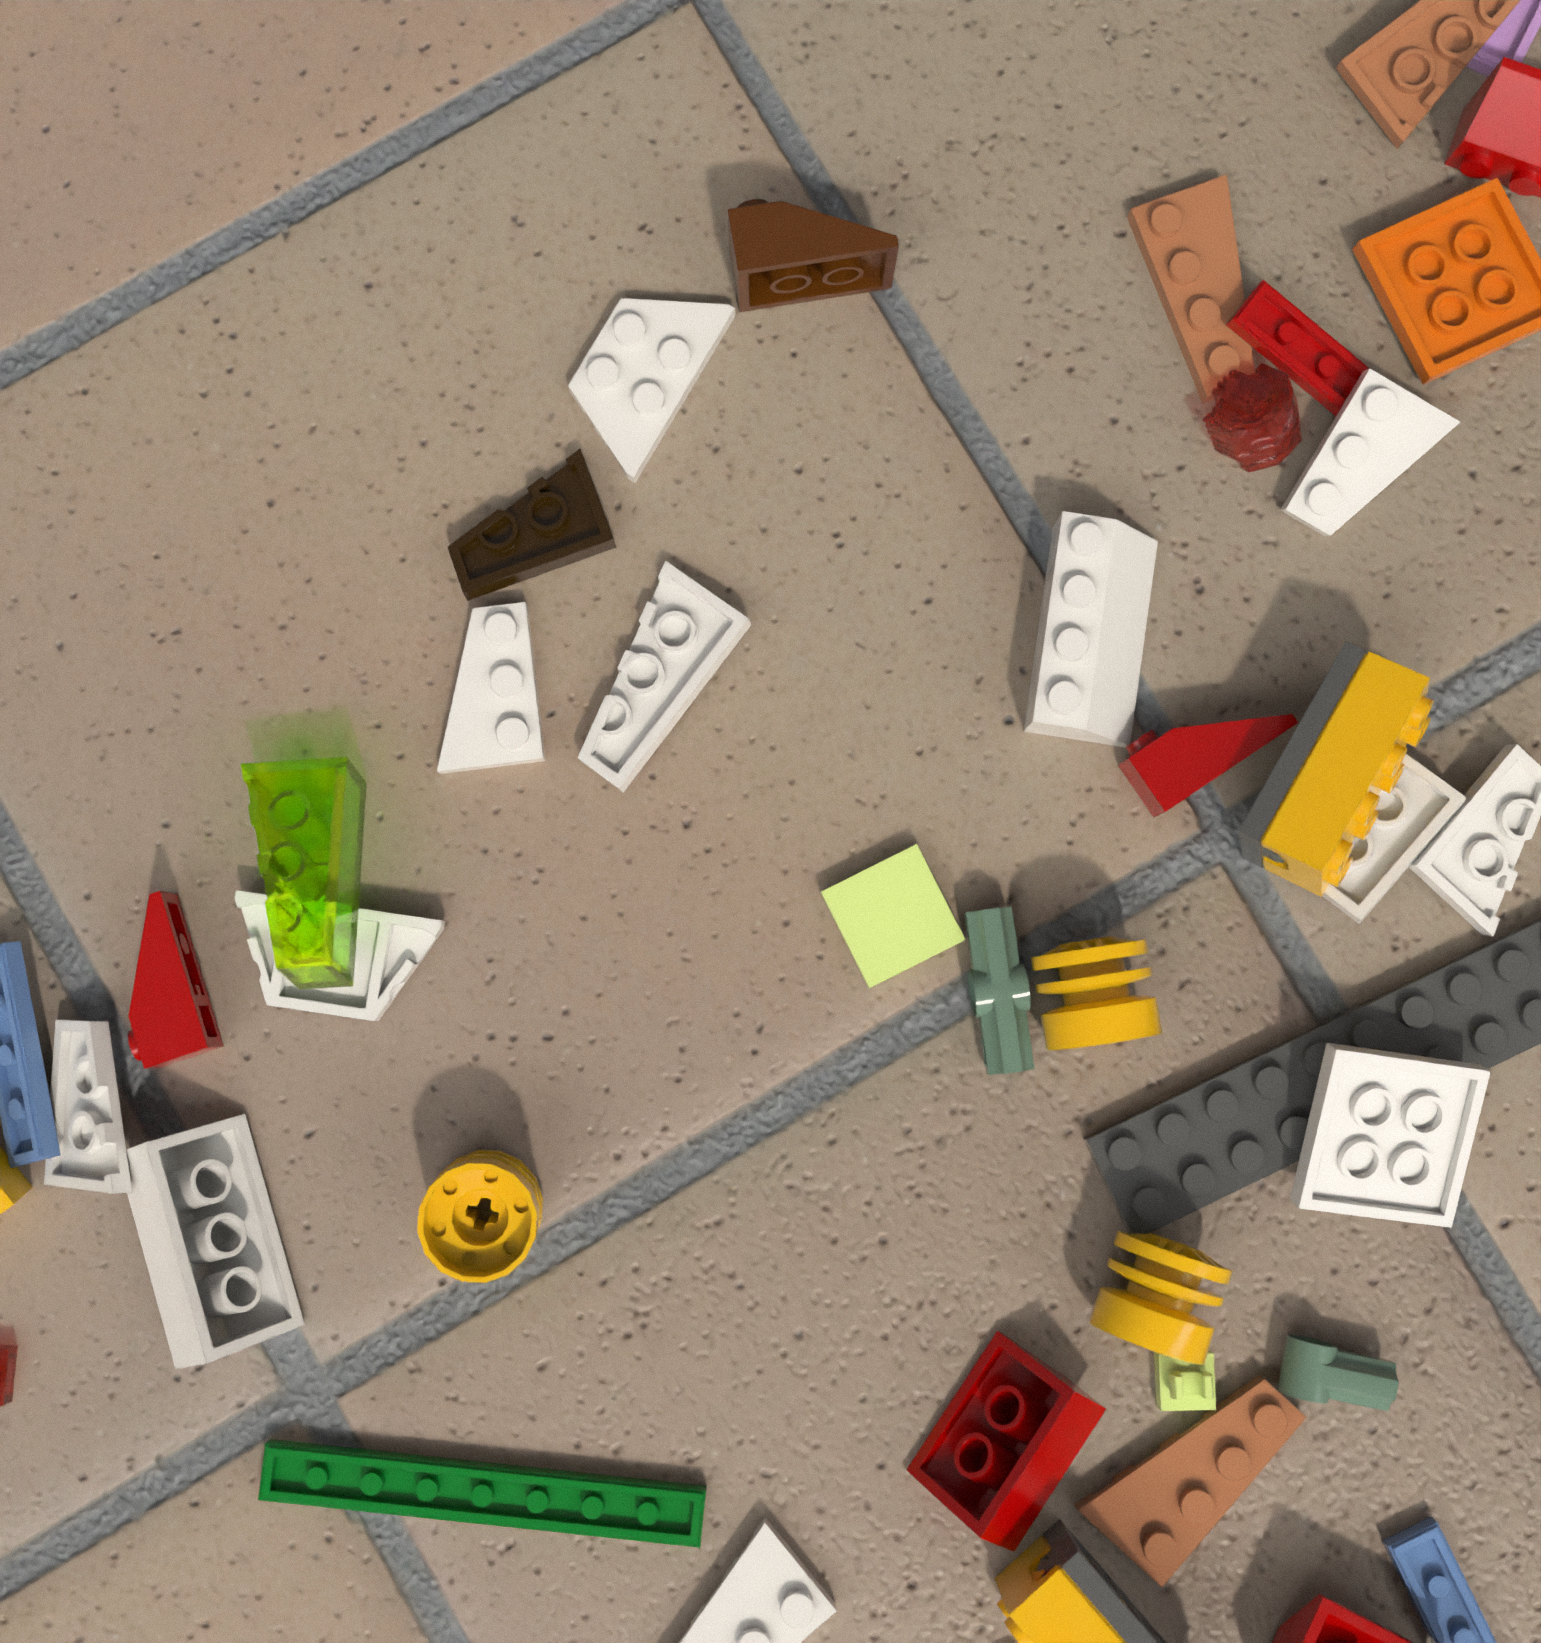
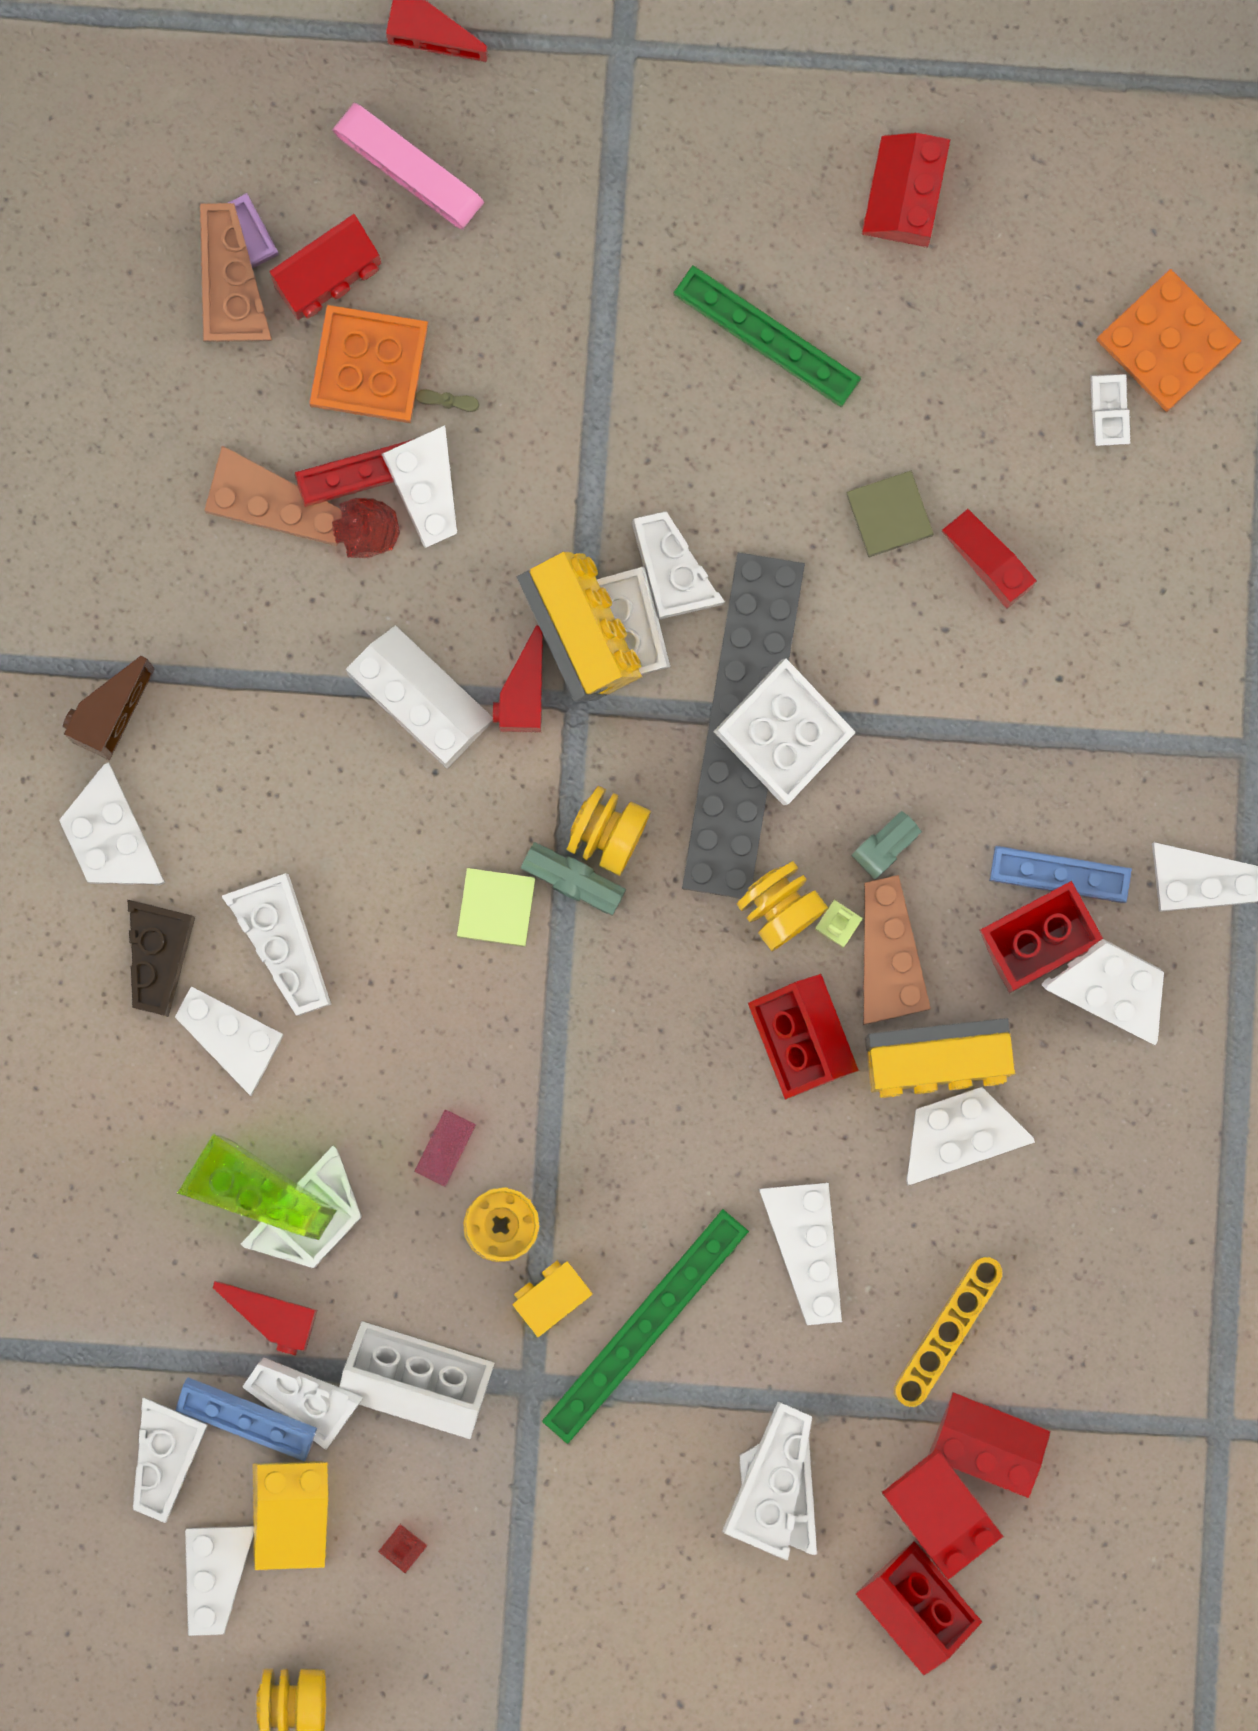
camera: 55 degrees left, 0 degrees up
(434, 1345) = (551, 1298): none -> yellow brick
(538, 1066) = (445, 1148): none -> clear pink plate
(1484, 411) = (447, 400): none -> olive piece

